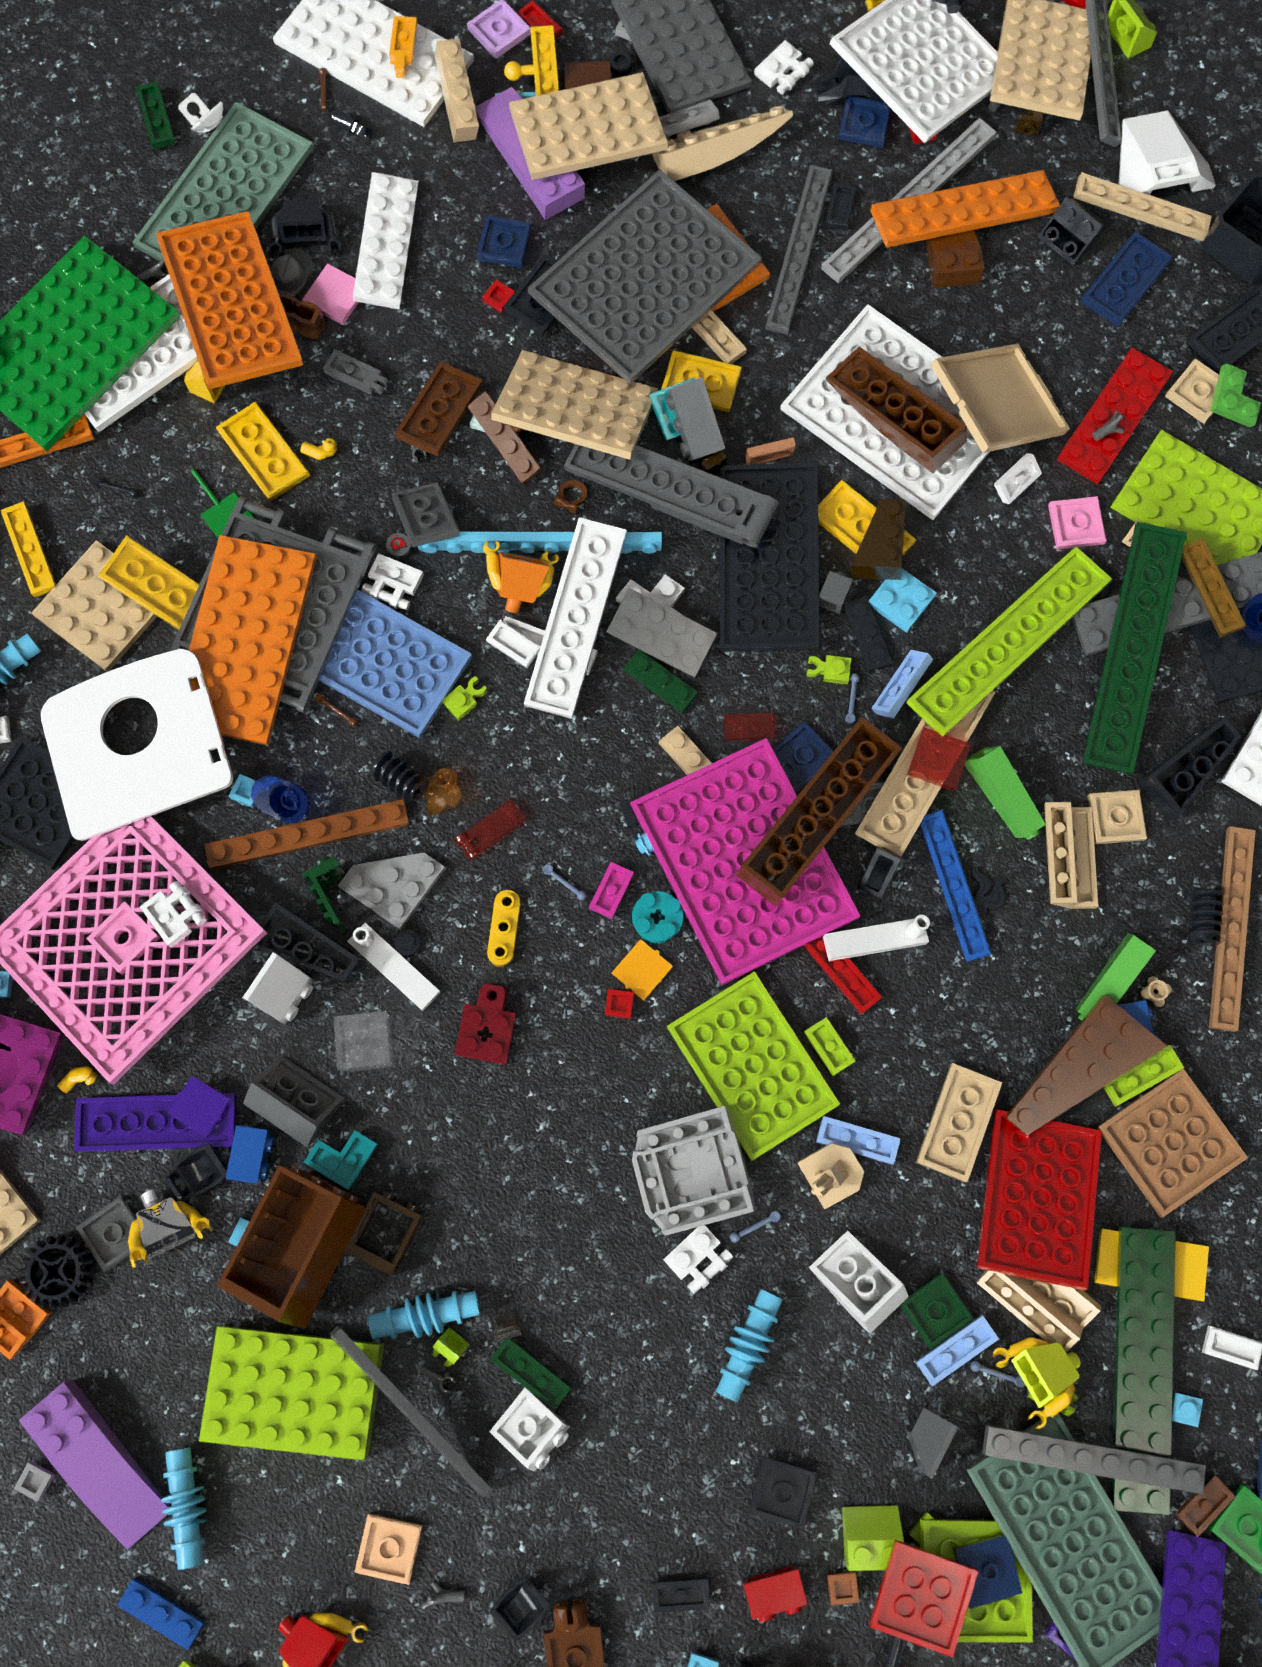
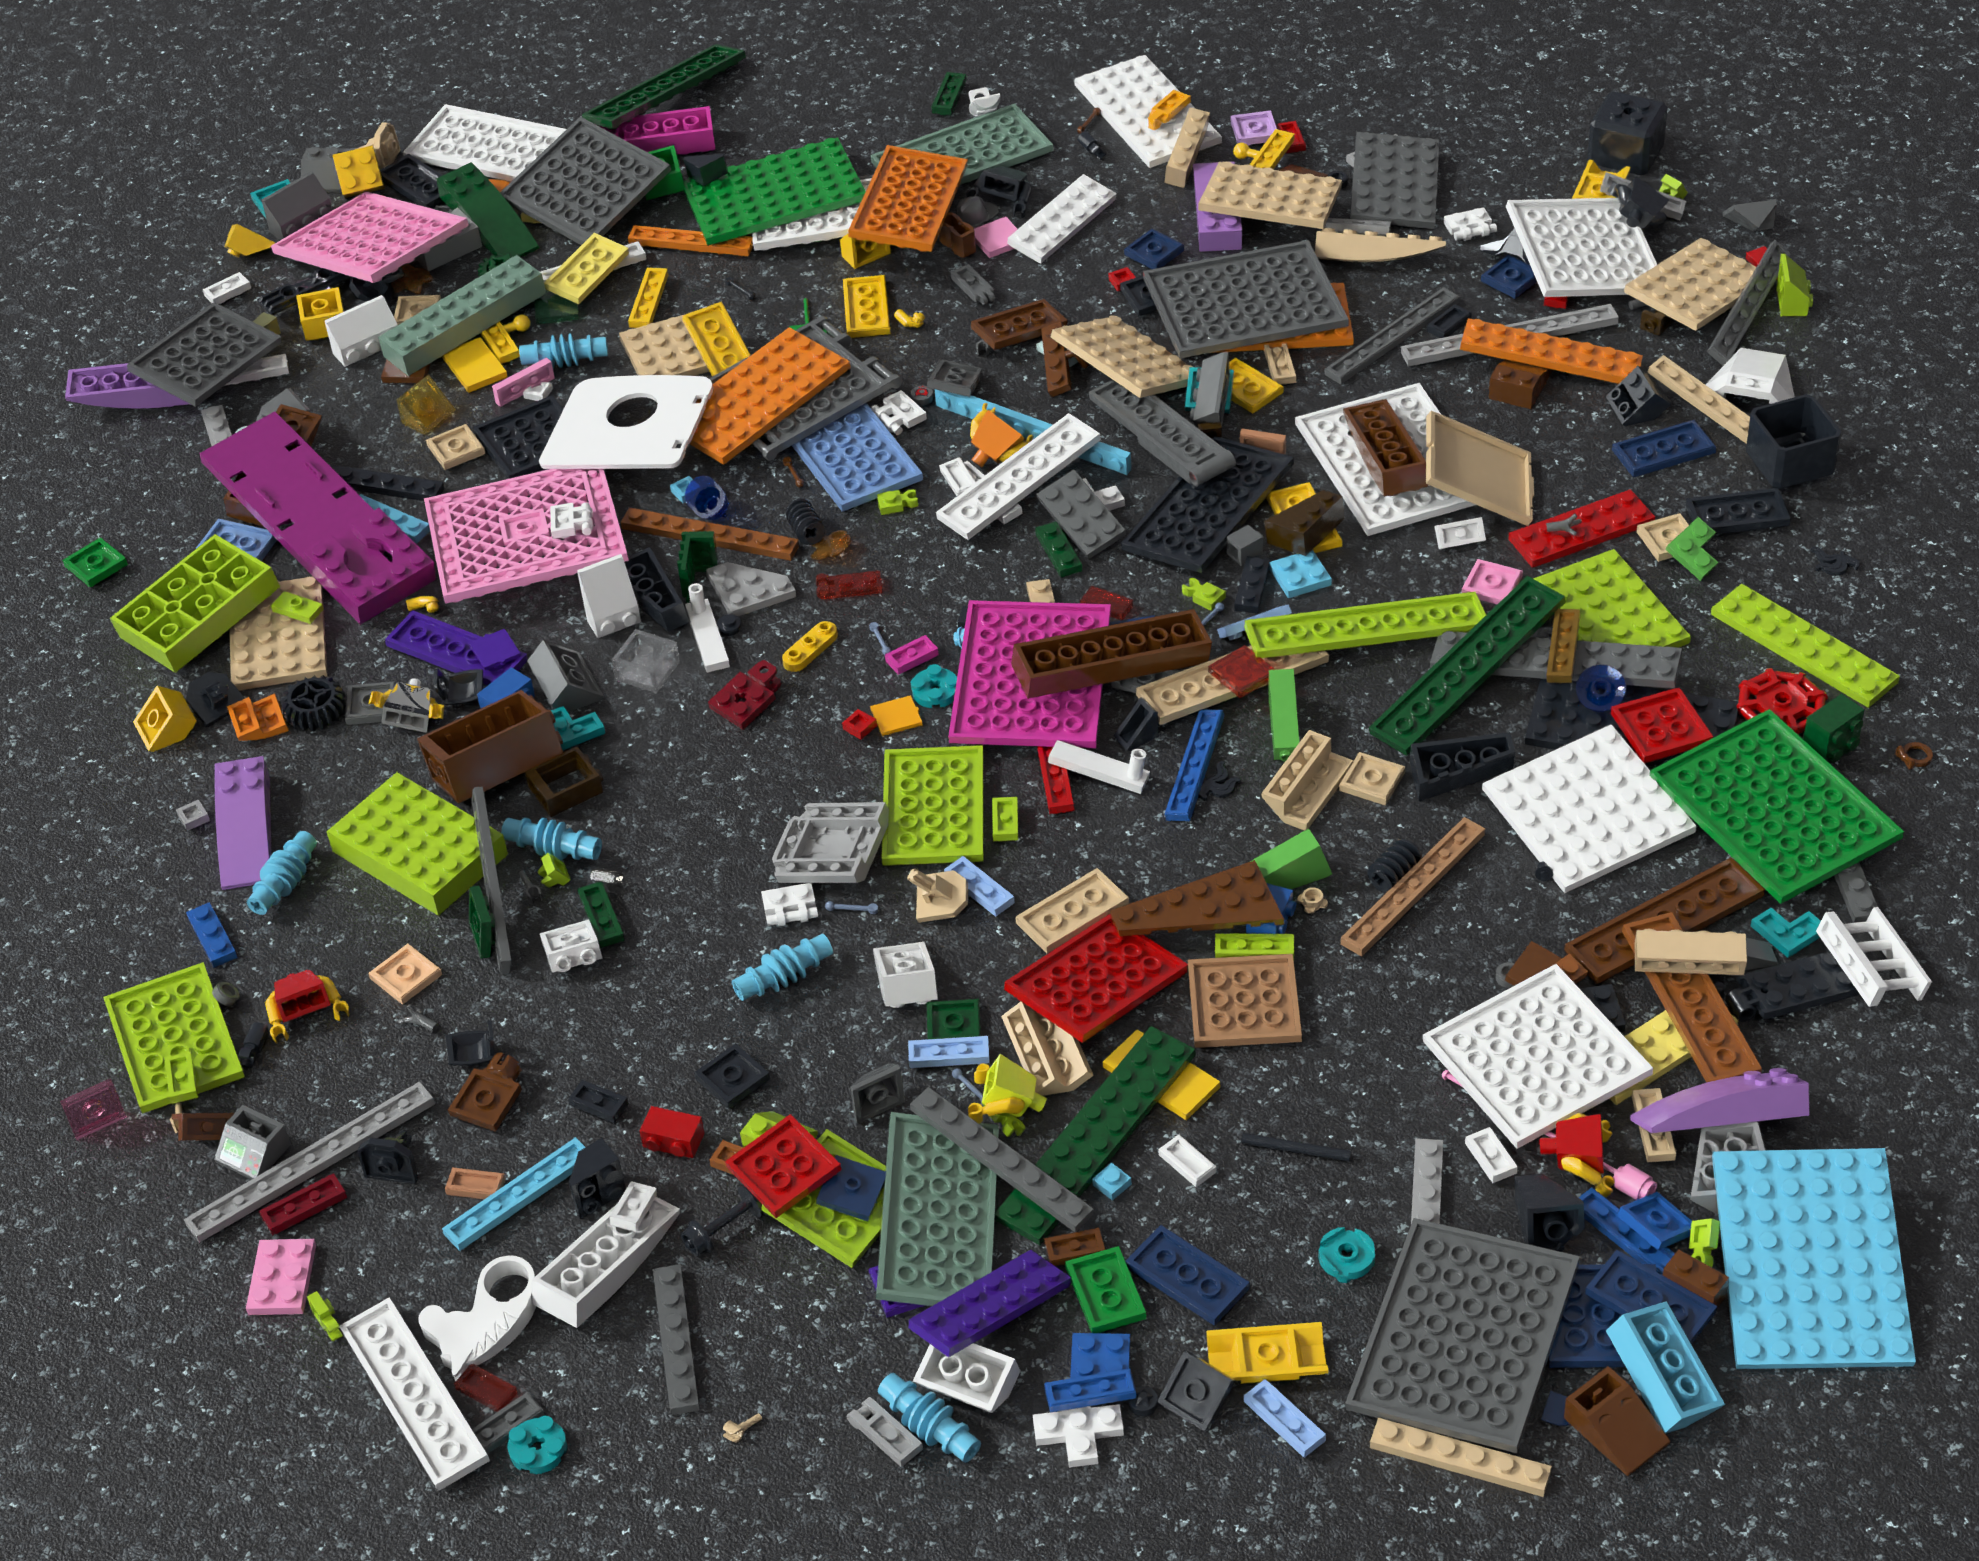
camera: 35 degrees right, 30 degrees down
(440, 1468) = (481, 922): none -> dark green plate
(573, 506) = (1081, 407): reddish brown piece -> none

